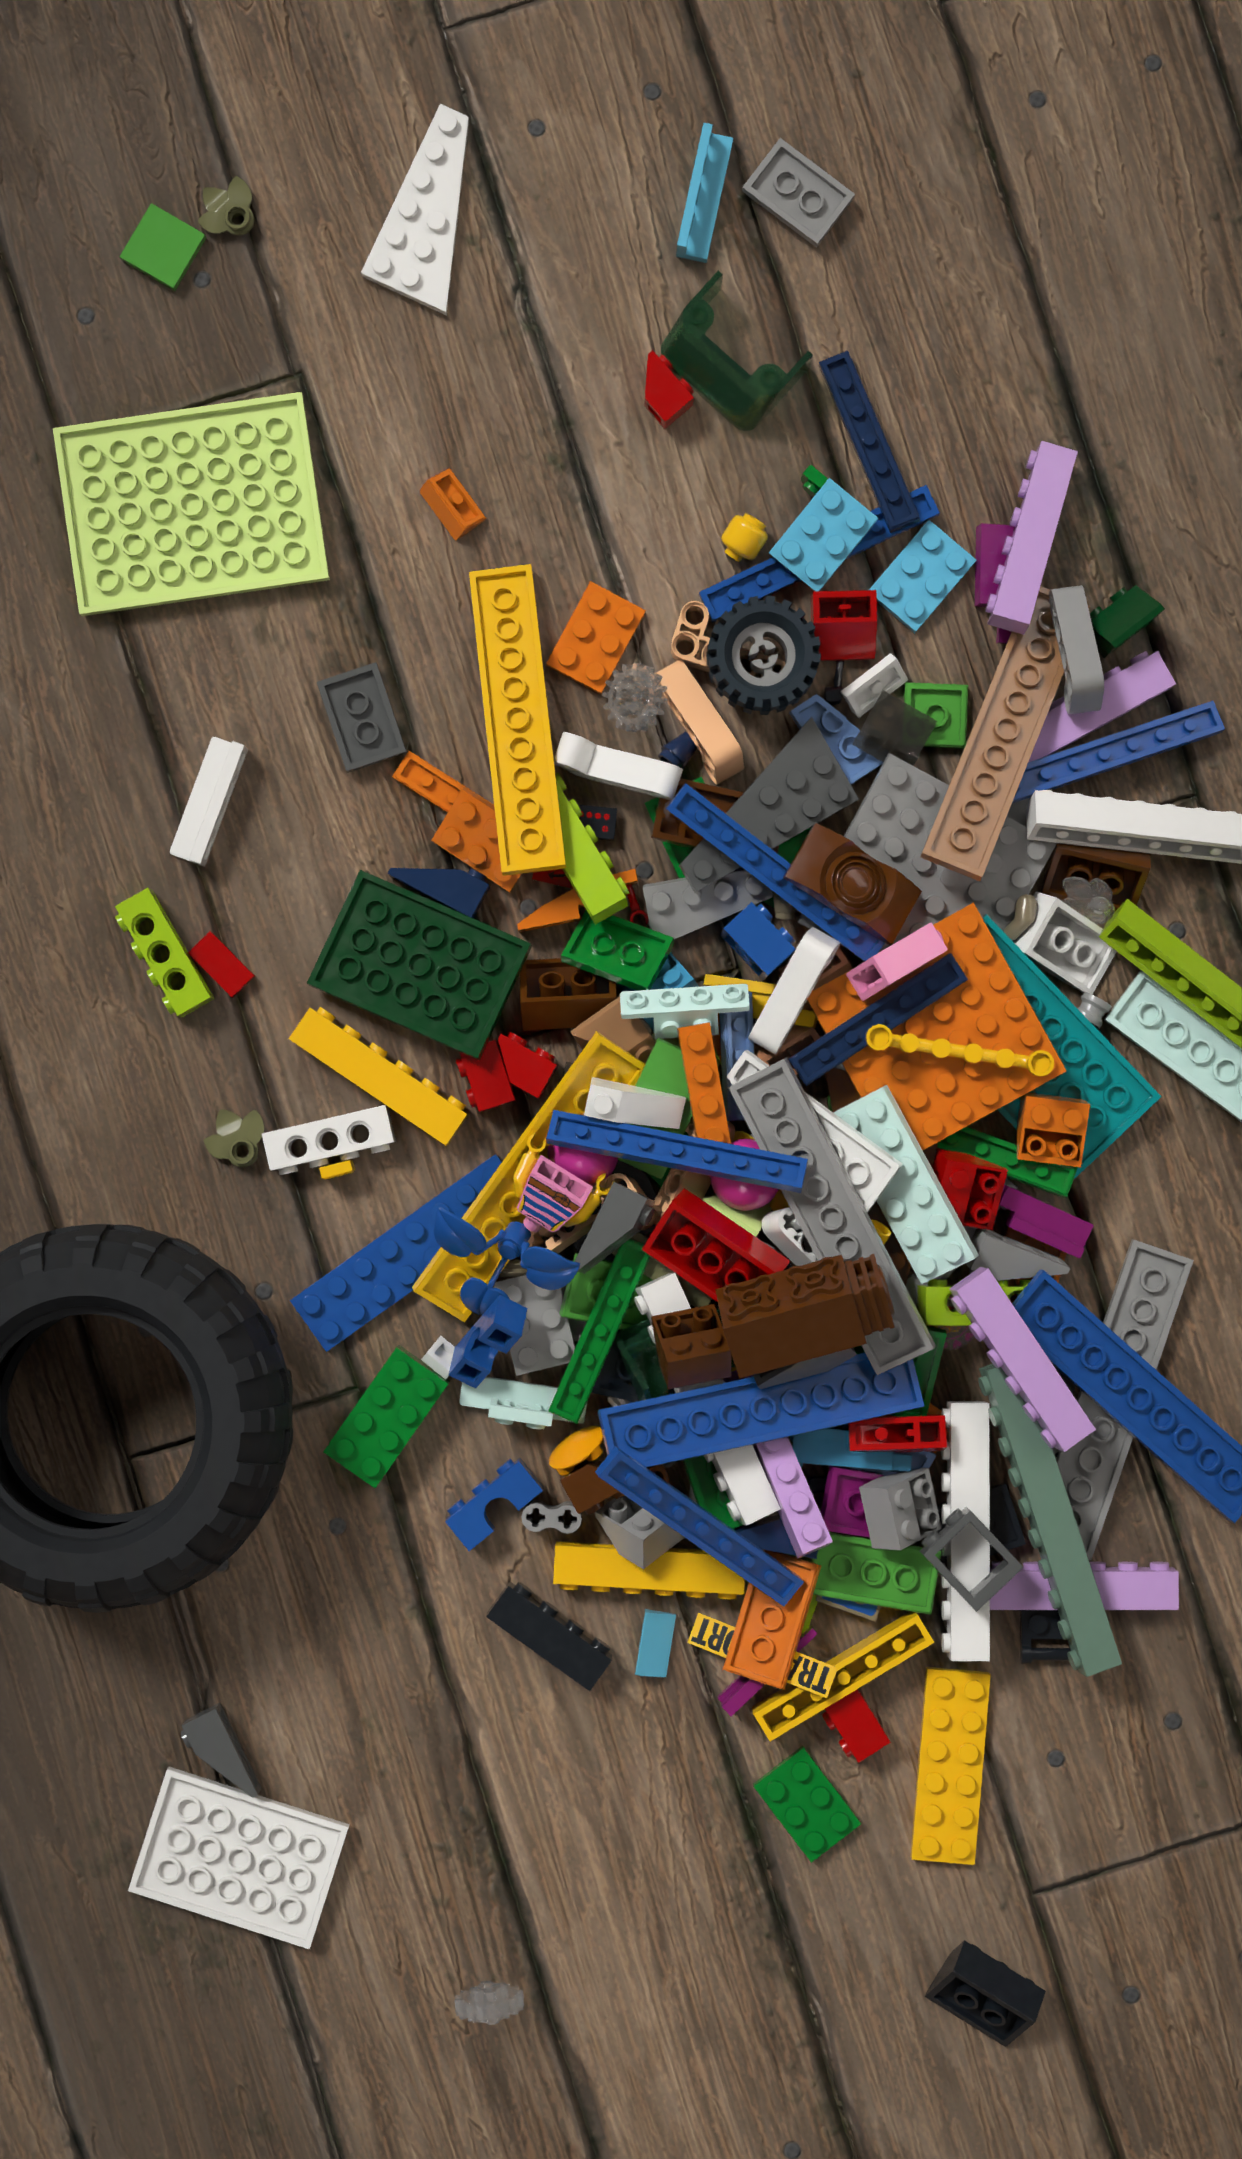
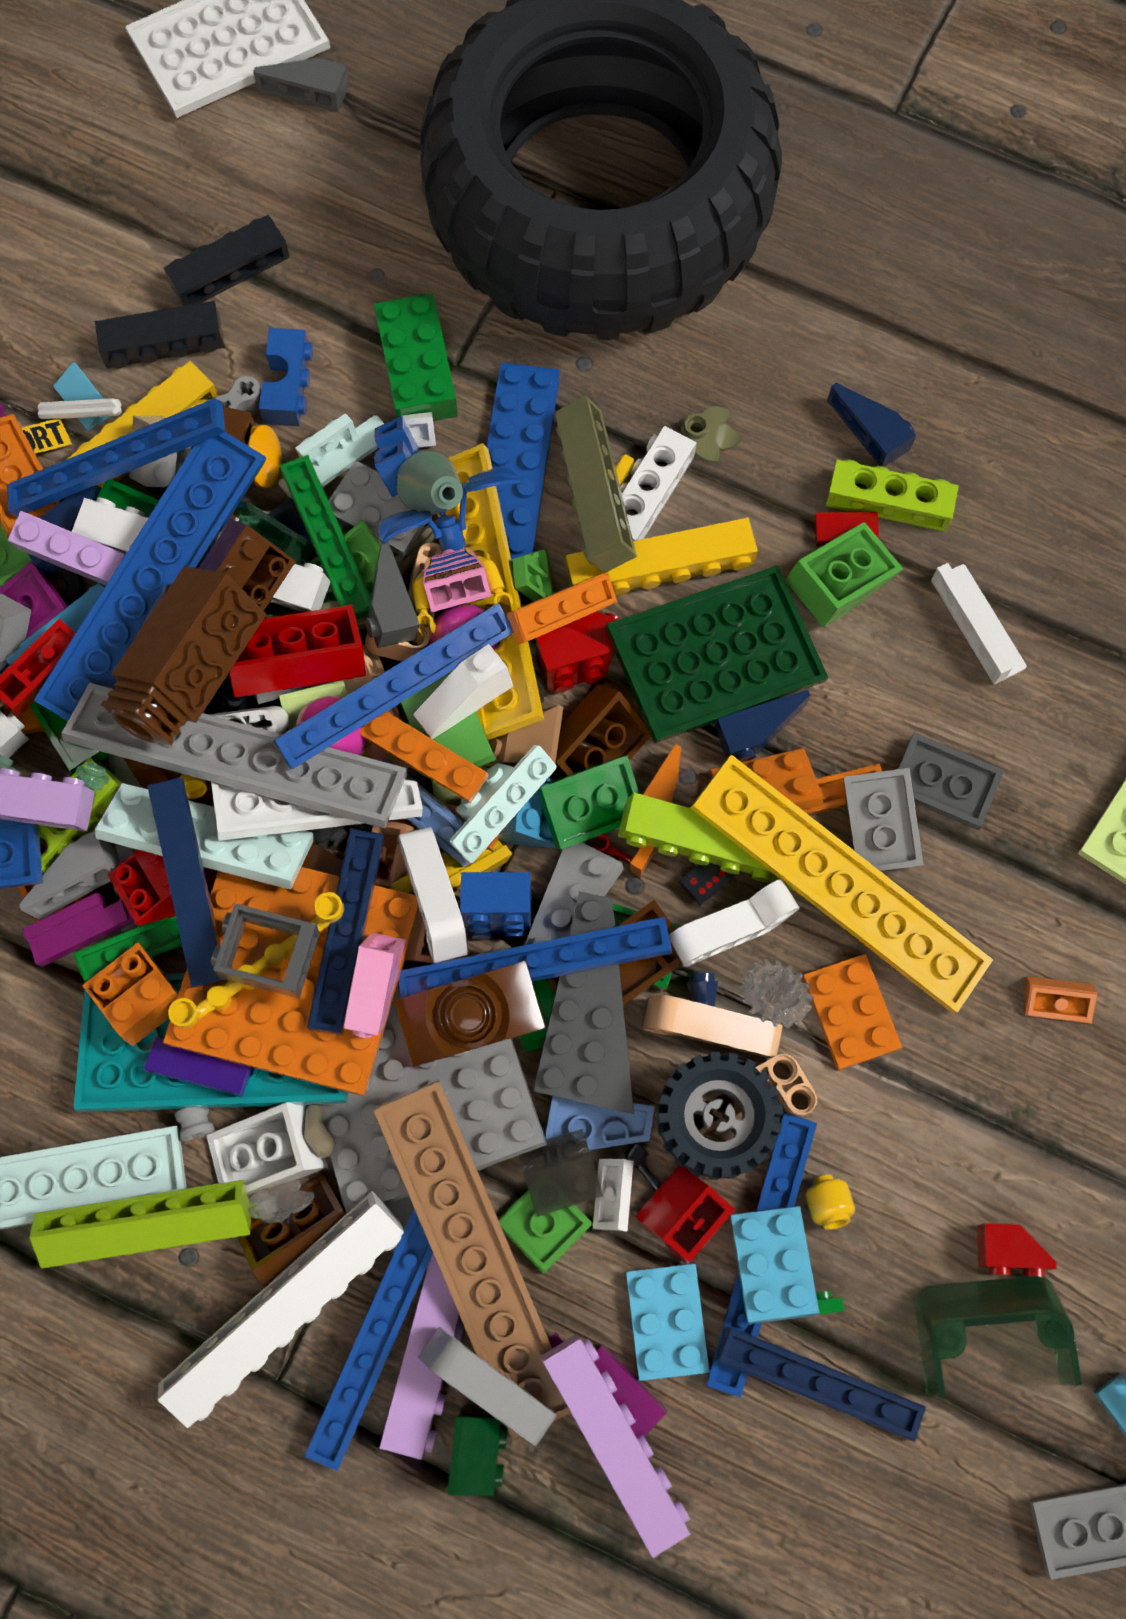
camera: 130 degrees right, 15 degrees down
(116, 1013) = (874, 425): none -> dark blue slope
(265, 930) = (842, 574): none -> bright green slope
(370, 1175) = (594, 485): none -> olive brick
(437, 734) = (884, 819): none -> light grey plate
(439, 1648) = (227, 261): none -> black brick
(481, 1156) = (533, 575): none -> bright green wing
(497, 1099) = (562, 607): none -> orange tile
(498, 1277) = (429, 483): none -> sand green cone
(668, 1630) = (79, 408): none -> white axle
(939, 1304) = (92, 775): none -> clear light blue plate
(950, 1156) = (186, 878): none -> dark blue tile
(977, 1076) = (300, 960): none -> dark grey window
(1061, 1036) = (197, 1069): none -> dark purple tile

